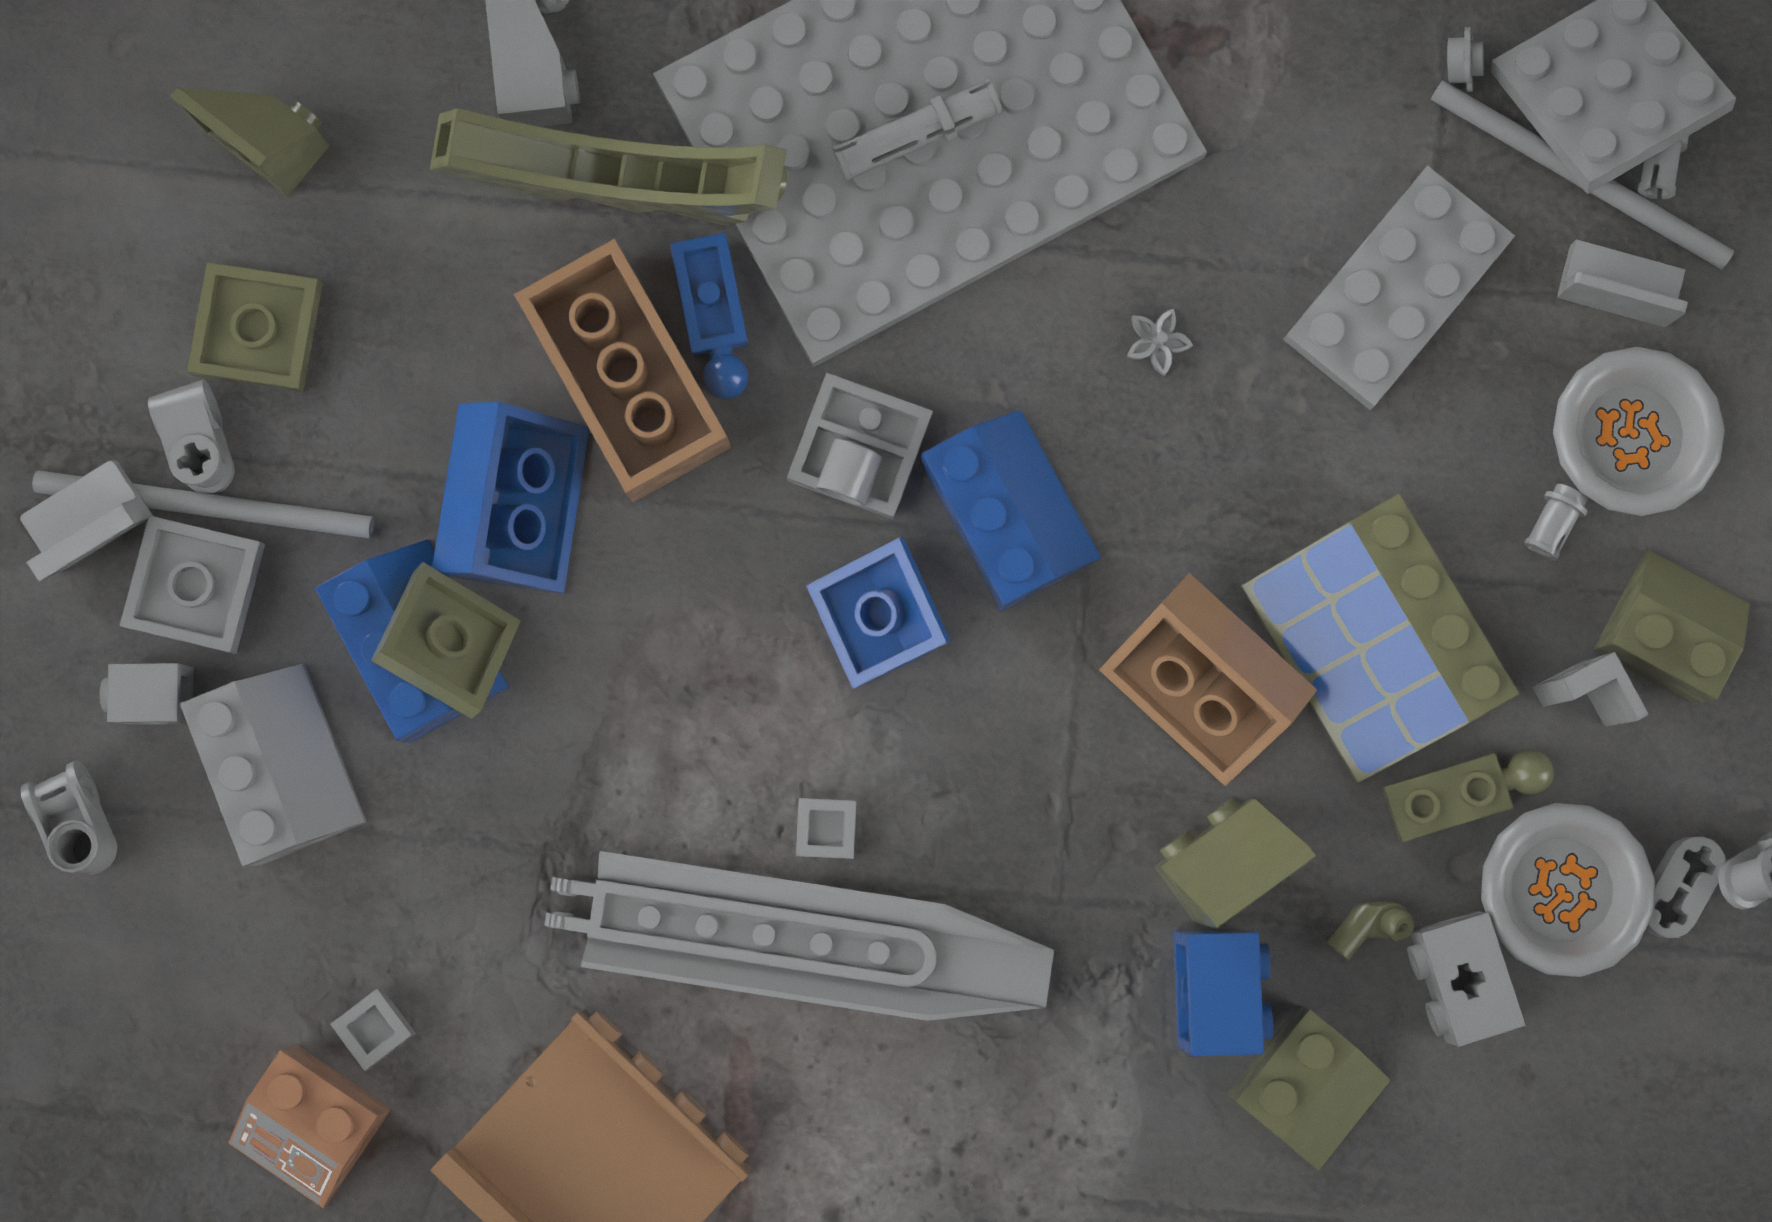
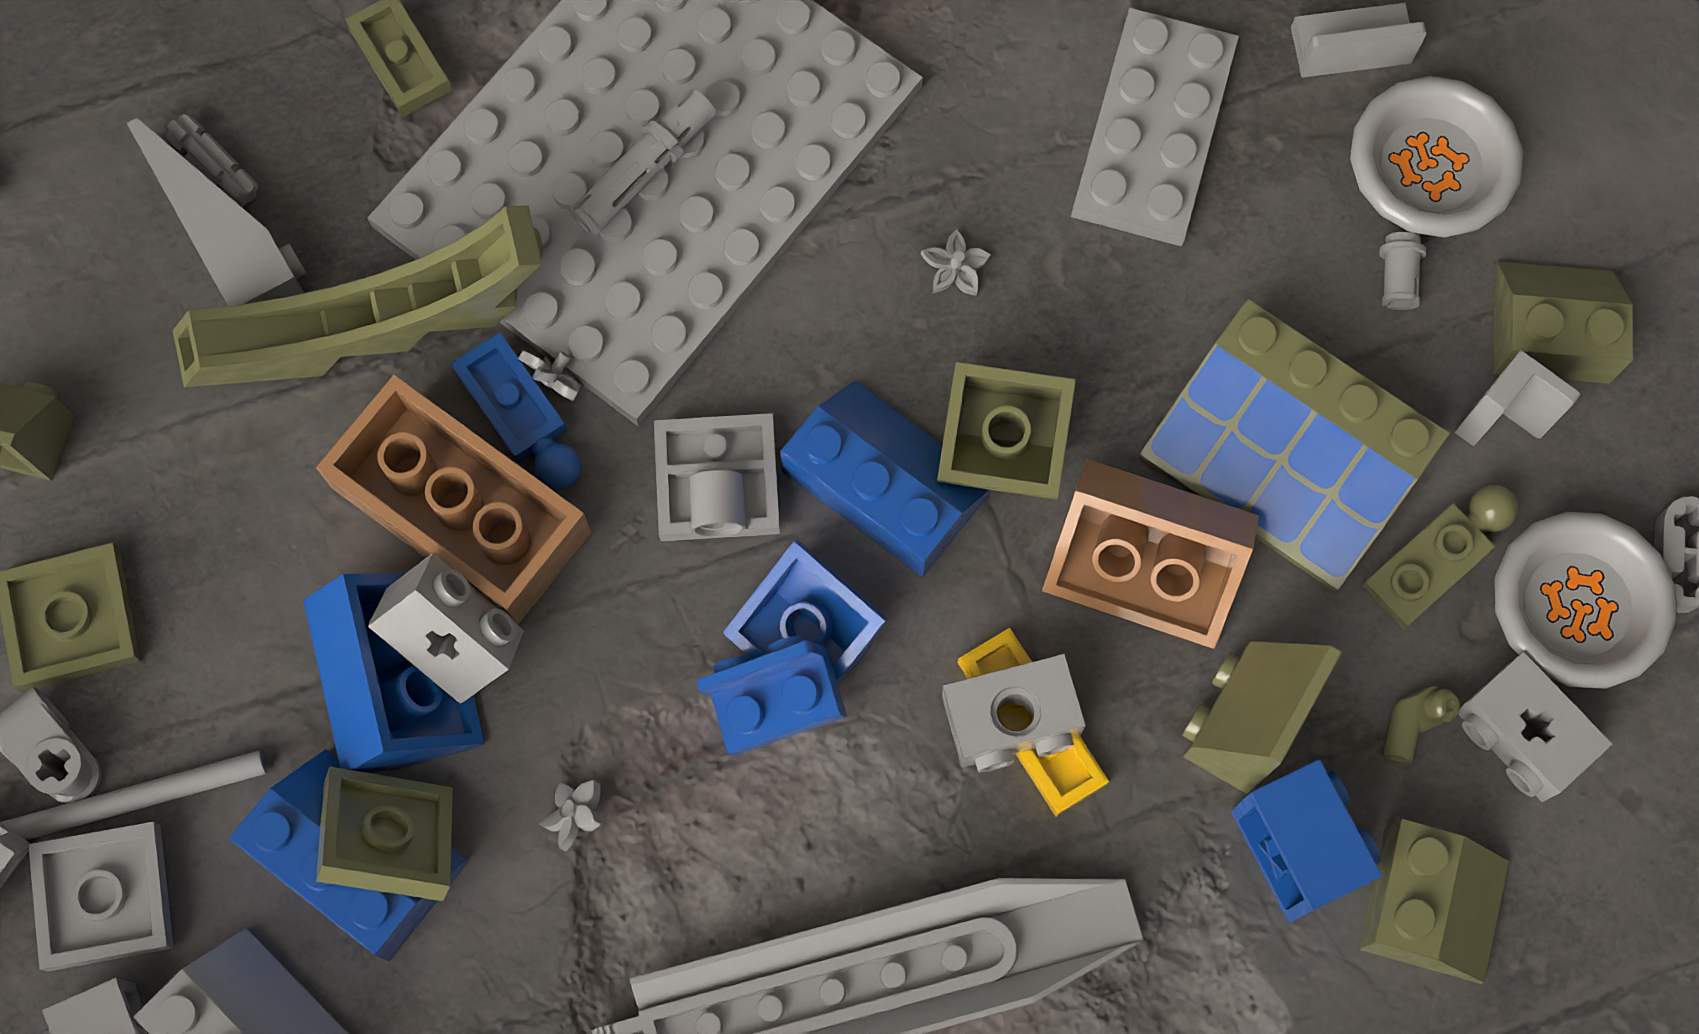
camera: 25 degrees left, 10 degrees down
(568, 485) = (446, 628): none -> light grey brick
(613, 687) = (573, 812): none -> light grey plant
(757, 291) = (553, 373): none -> light grey plant
(825, 664) = (773, 694): none -> blue bracket
(826, 828) = (847, 858): light grey plate -> none
(1038, 780) = (1061, 777): none -> yellow tile
(1055, 760) = (1040, 687): none -> light grey brick
(1127, 520) = (1006, 430): none -> olive slope

